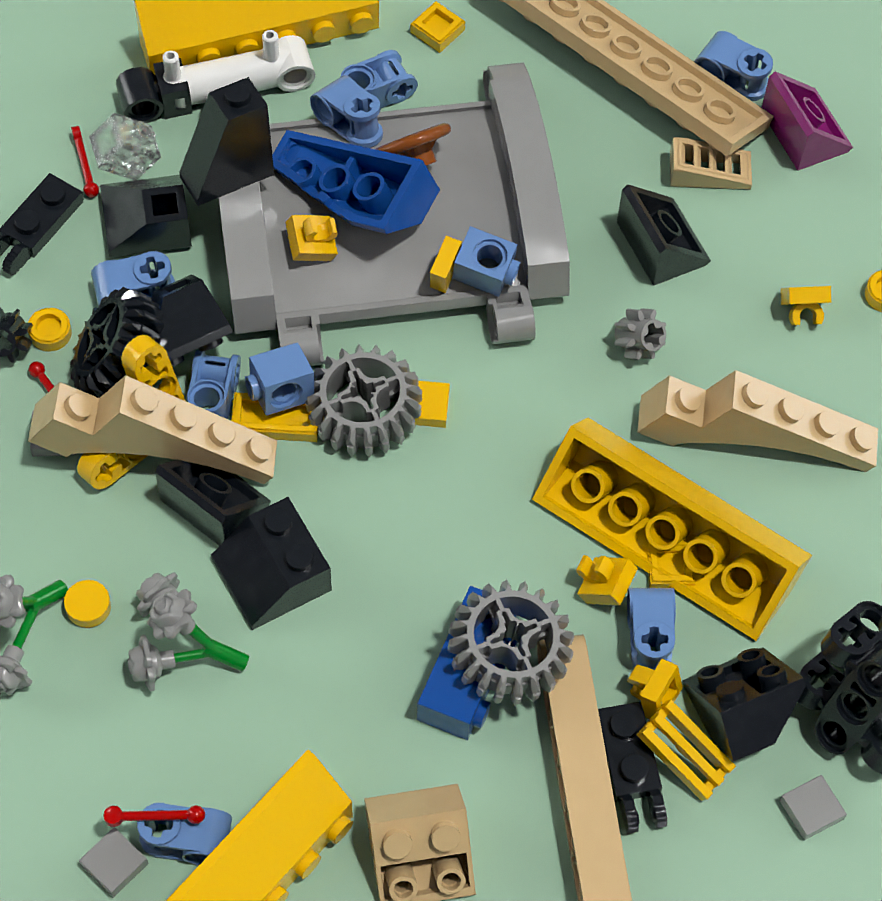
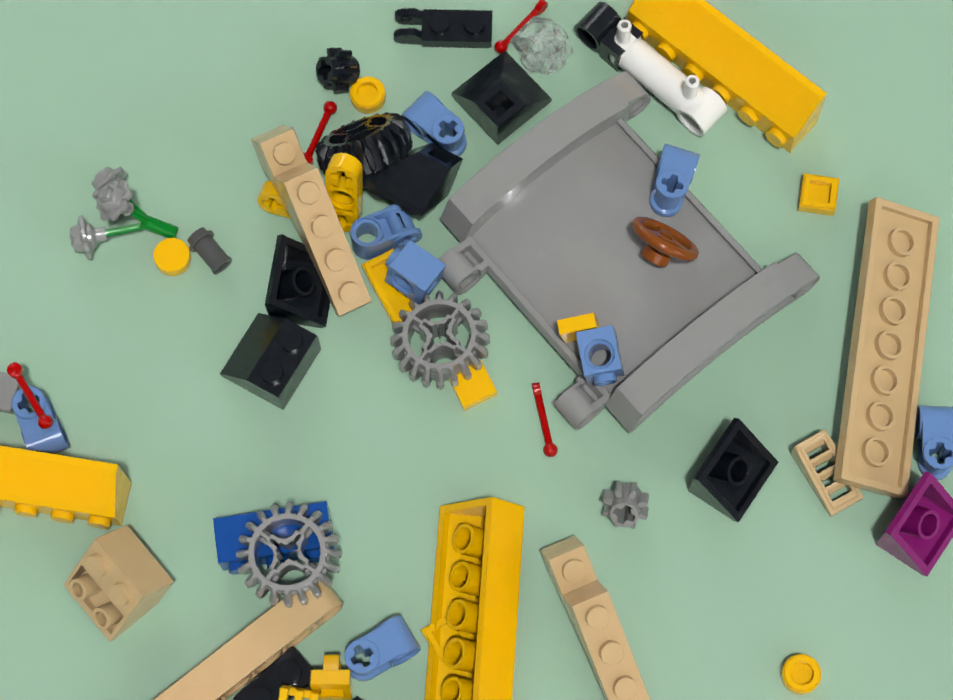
camera: 65 degrees right, 10 degrees up
(109, 561) = (209, 250): none -> dark grey pin
(169, 615) = (168, 316): light grey plant -> none
(229, 143) = (554, 115): black slope -> none
(312, 237) = (537, 220): yellow tile -> none
(358, 182) = (597, 227): blue wedge -> none
(383, 78) = (729, 183): medium blue piece -> none
(471, 352) = (550, 448): none -> red hinge
(605, 579) = (398, 594): yellow tile -> none
(806, 298) = (746, 613): yellow tile -> none

